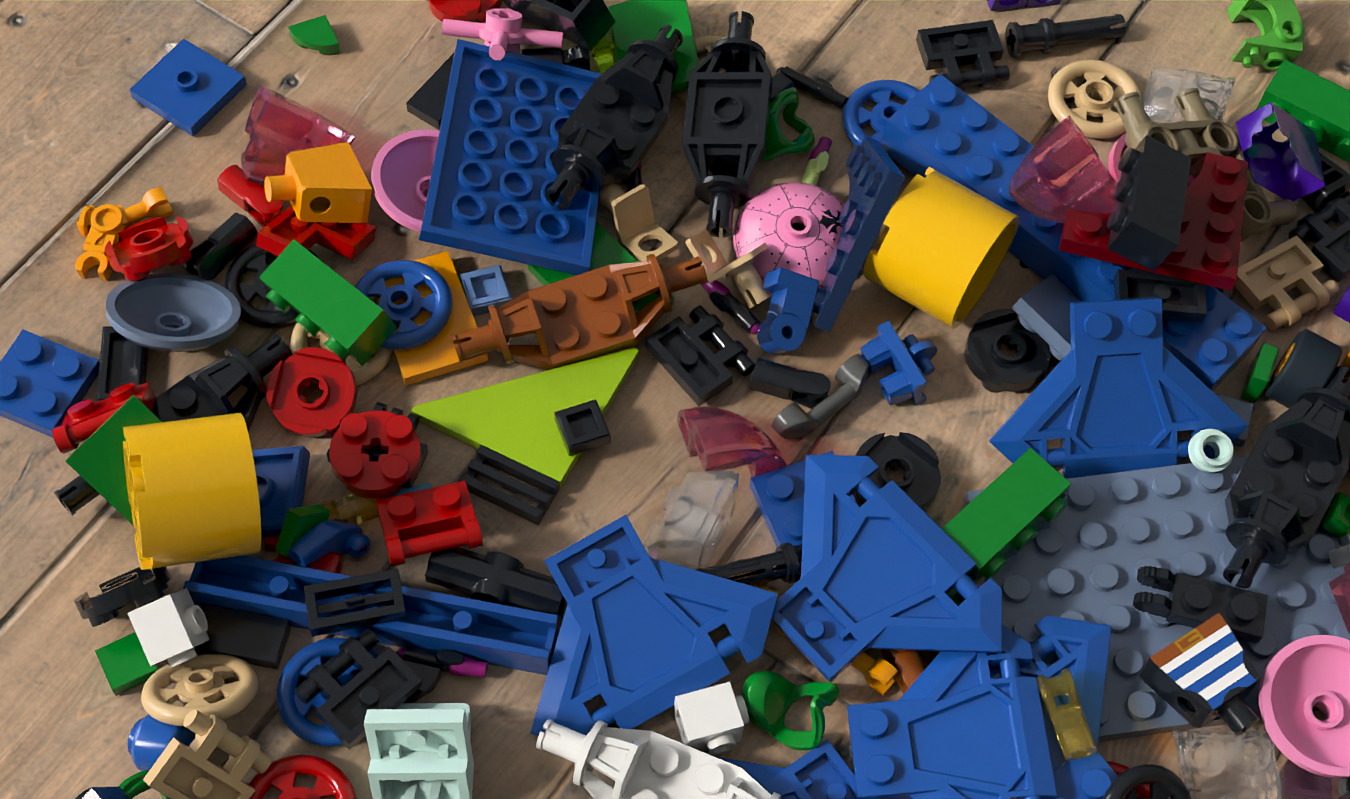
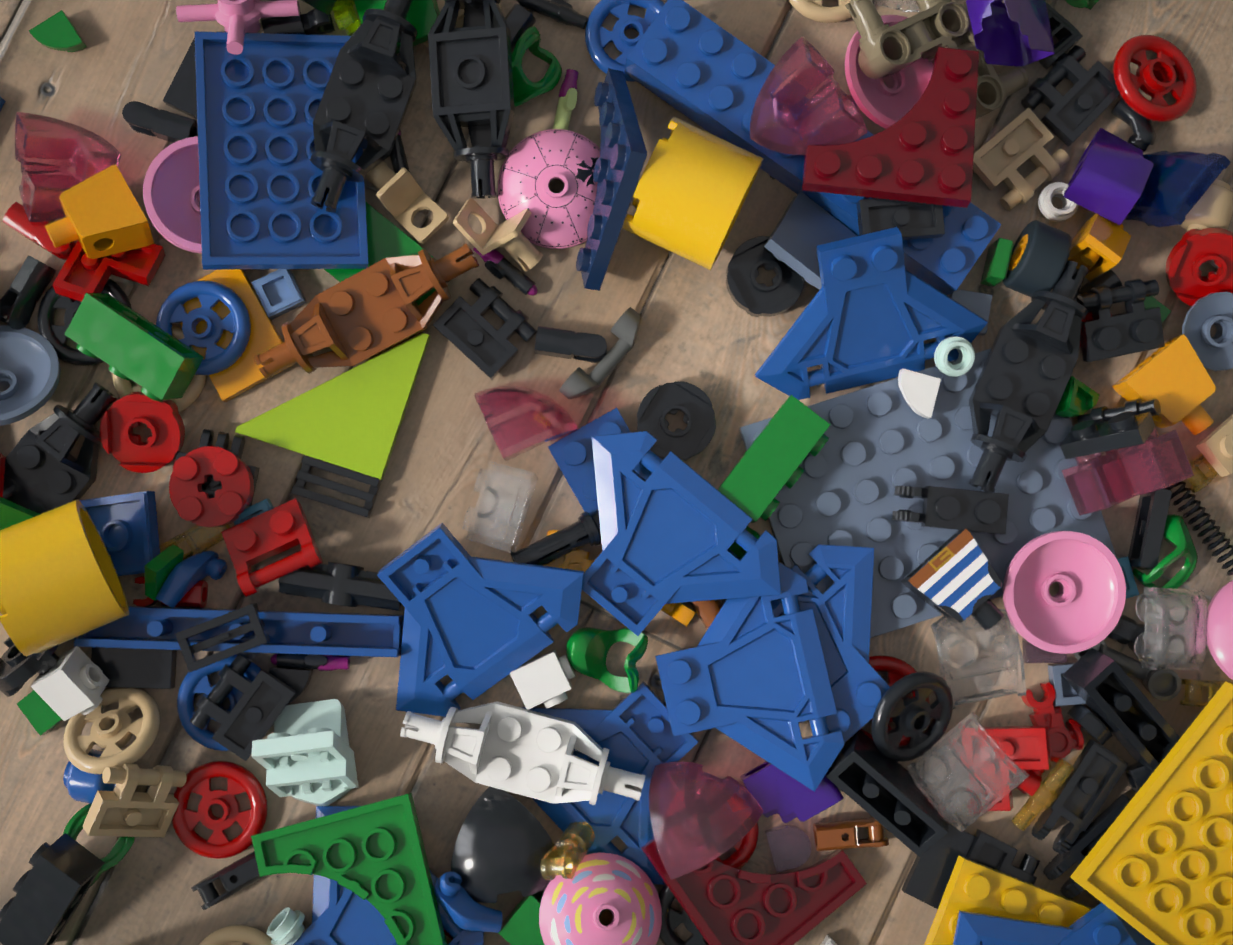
camera: 10 degrees left, 25 degrees up
(392, 119) = (159, 123): none -> black bar
(582, 427) = (390, 425): black tile -> none
(788, 310) = (559, 276): blue leg -> none
(907, 379) = (654, 297): blue hips -> none
(1069, 718) = (844, 645): clear yellow bar -> none
(1149, 203) = (884, 137): black brick -> none
(1169, 478) = (919, 391): none -> white tile
(1327, 320) = (1048, 210): none -> white plate

